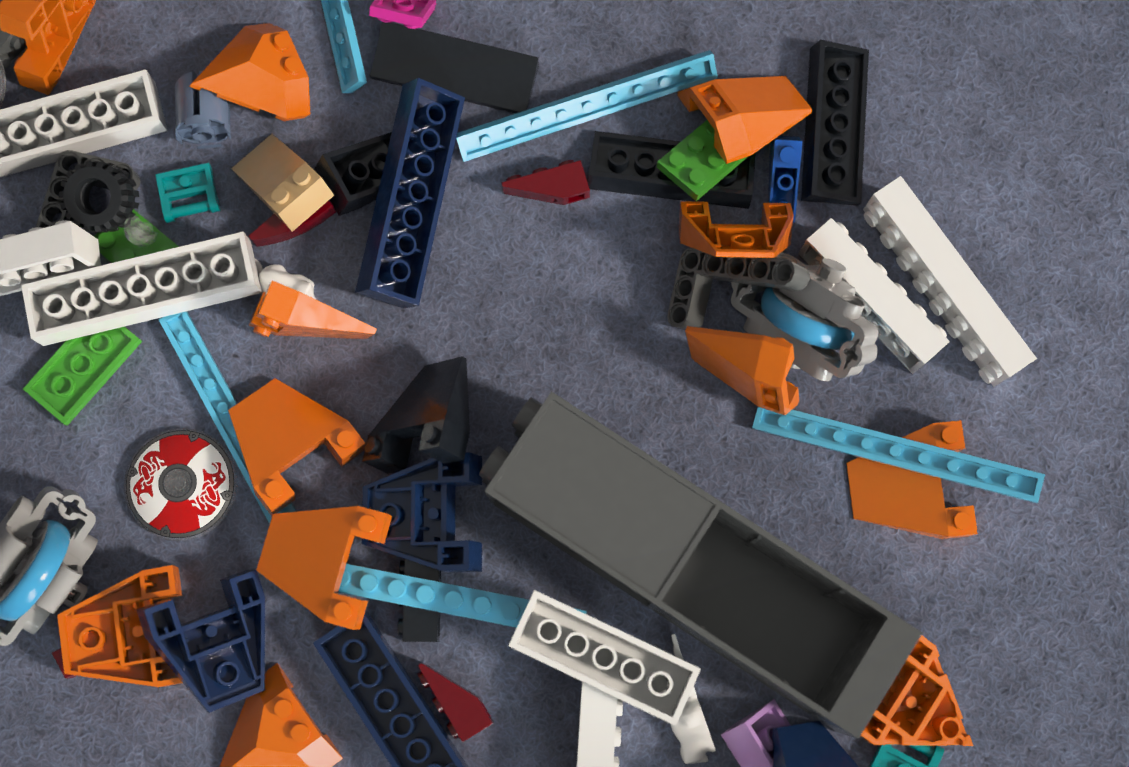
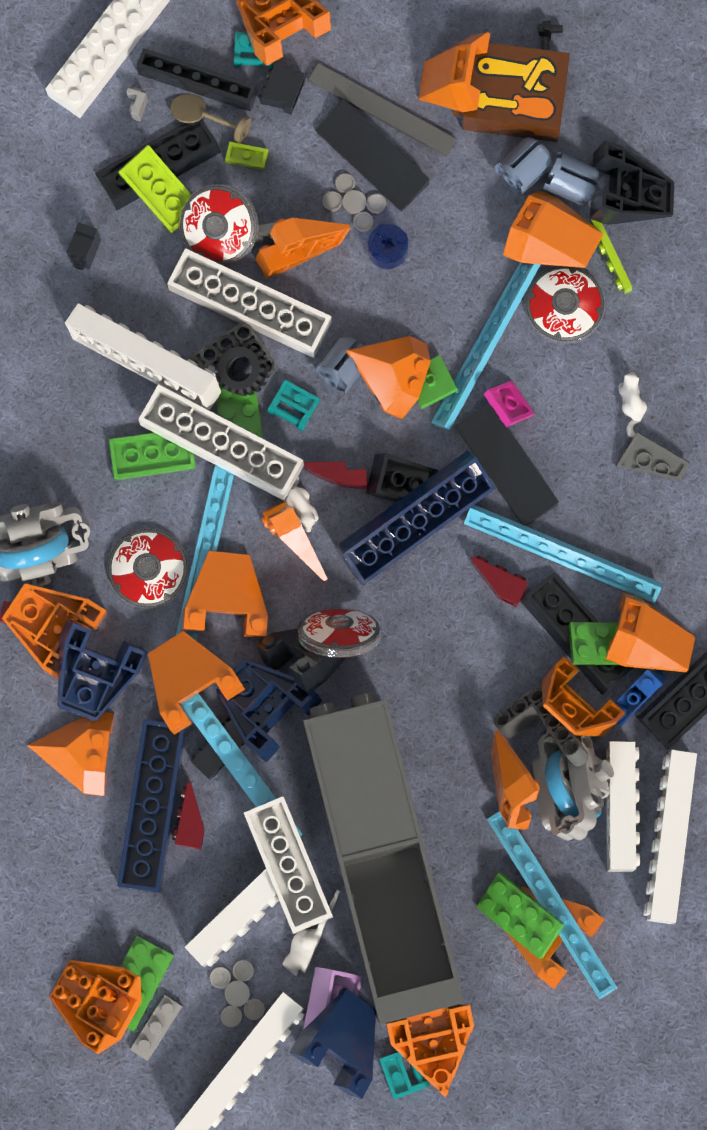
camera: 45 degrees right, 0 degrees up
(139, 232) = (247, 407): clear plate -> none
(283, 181) = (350, 446): tan slope -> none
(315, 49) = (437, 383): none -> bright green plate
(437, 372) = (339, 632): none -> dish
(877, 492) = (520, 915): none -> bright green plate

